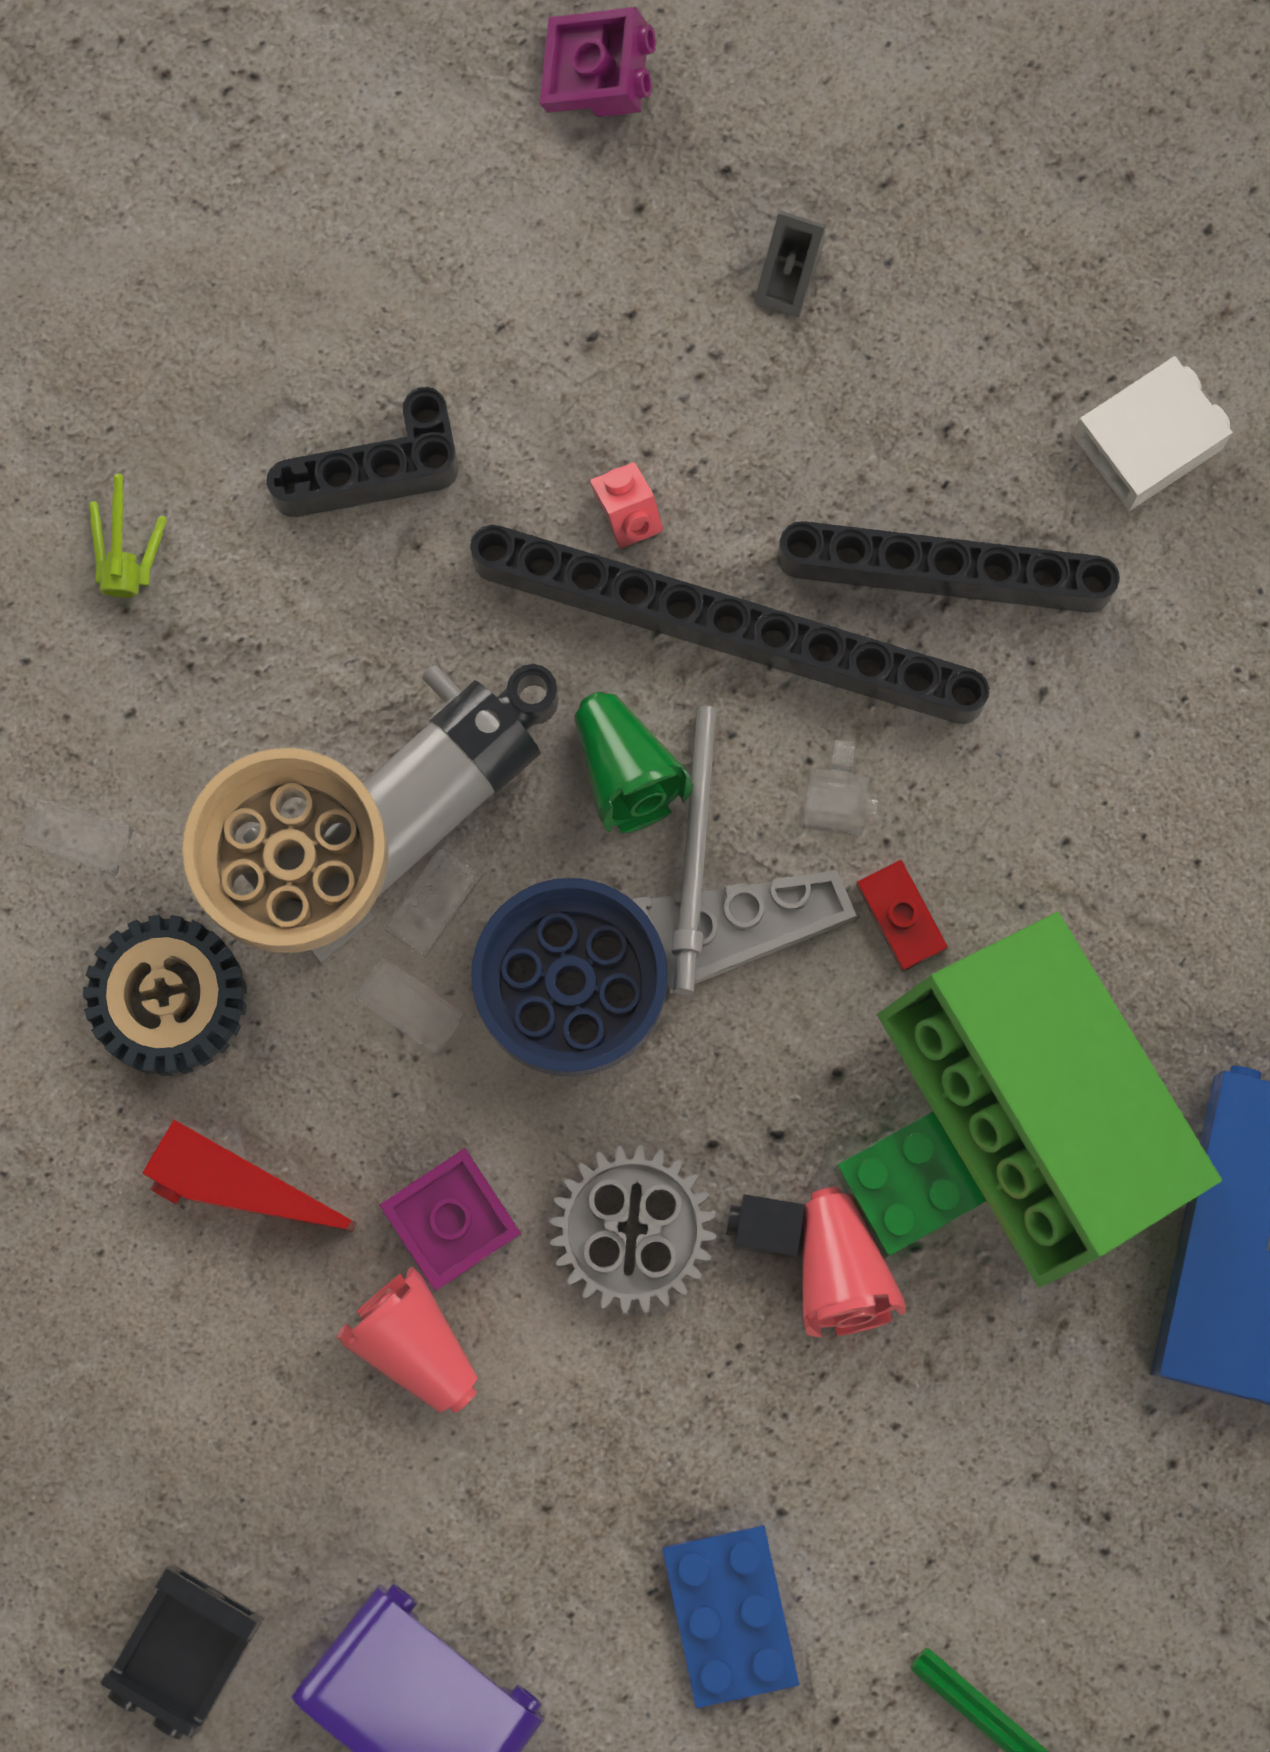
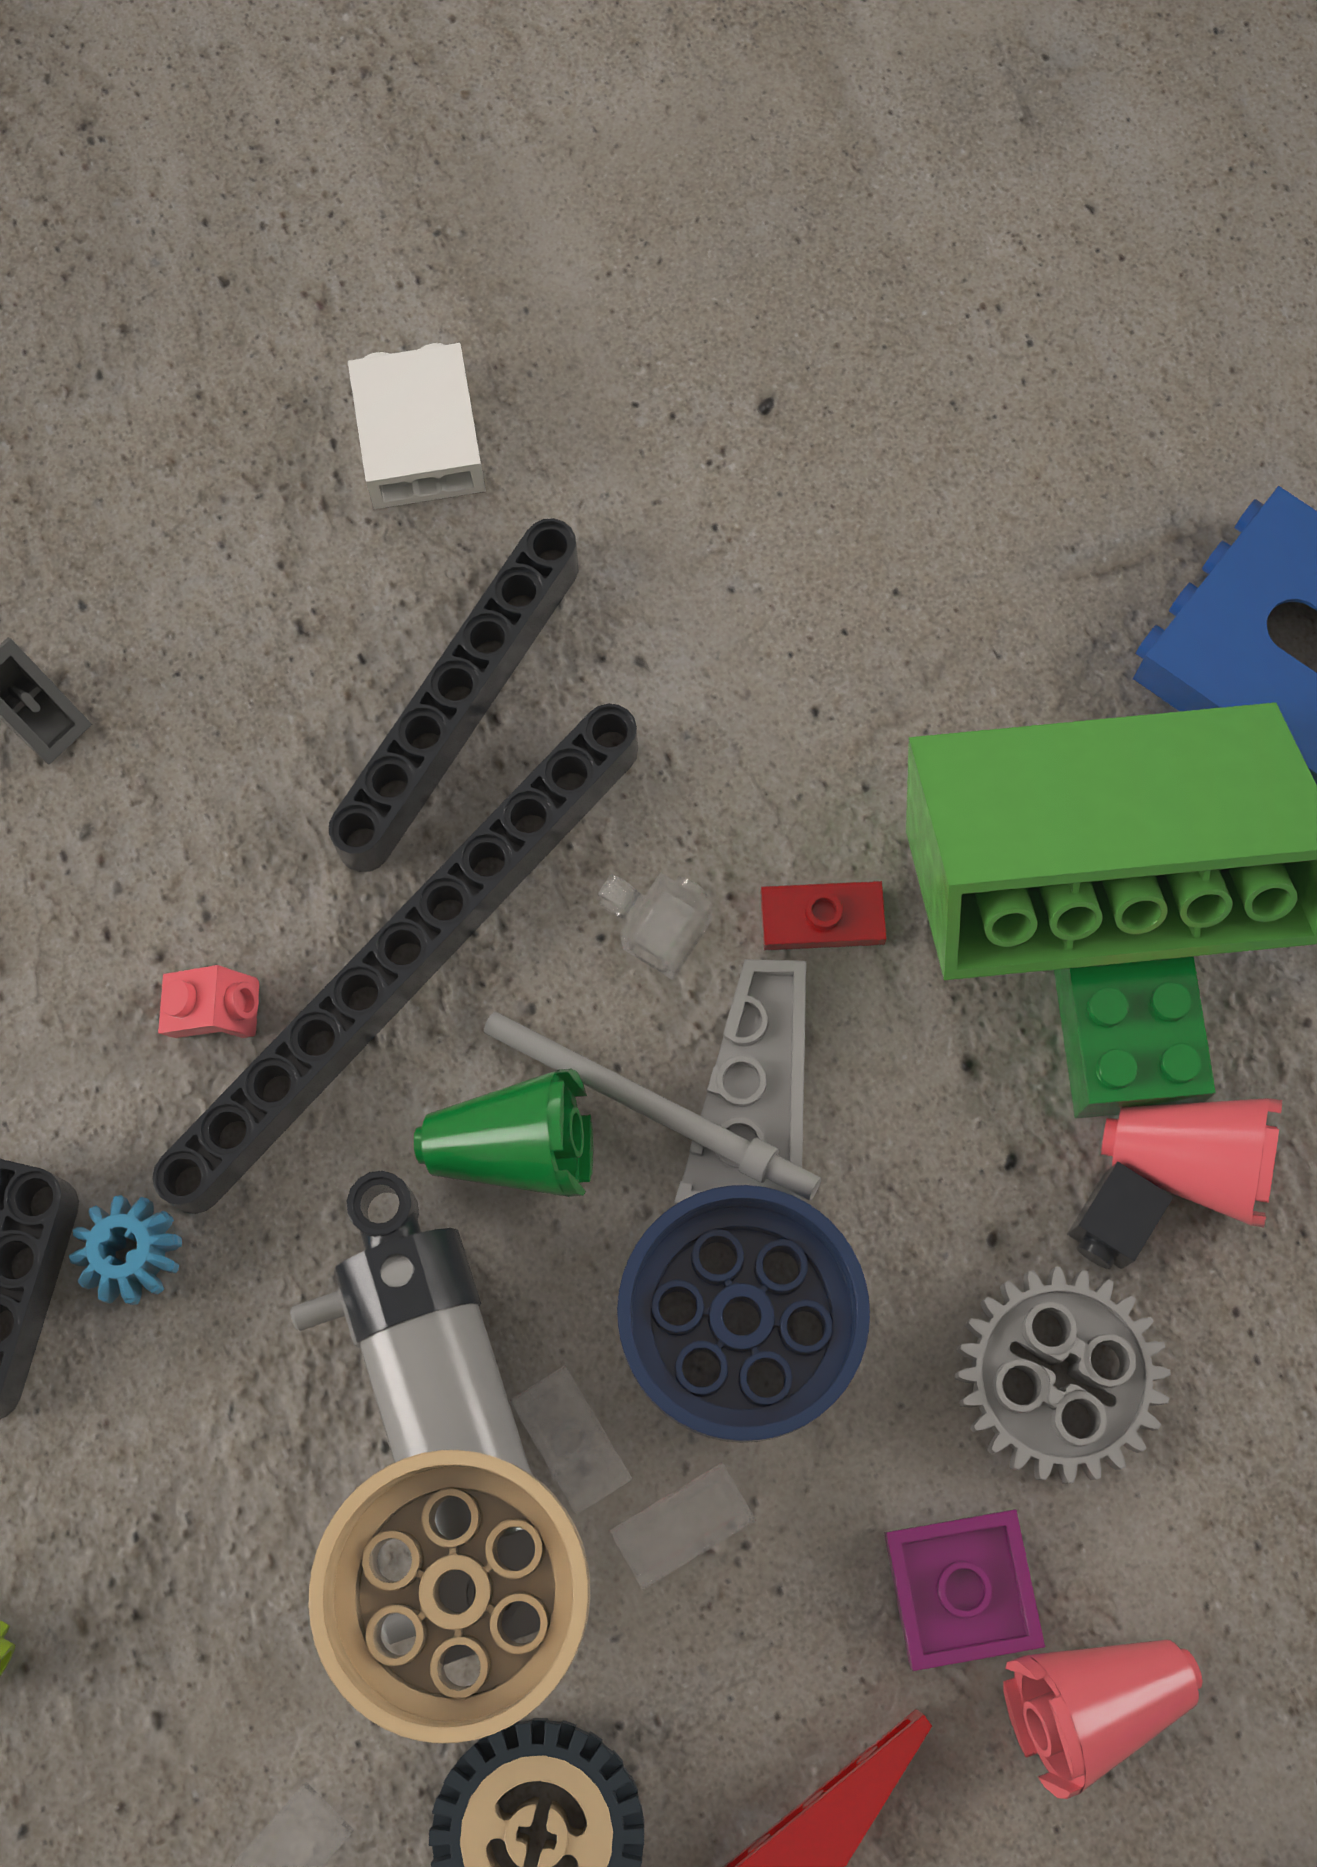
camera: 65 degrees left, 5 degrees down
(435, 520) = (141, 1263): none -> dark azure gear

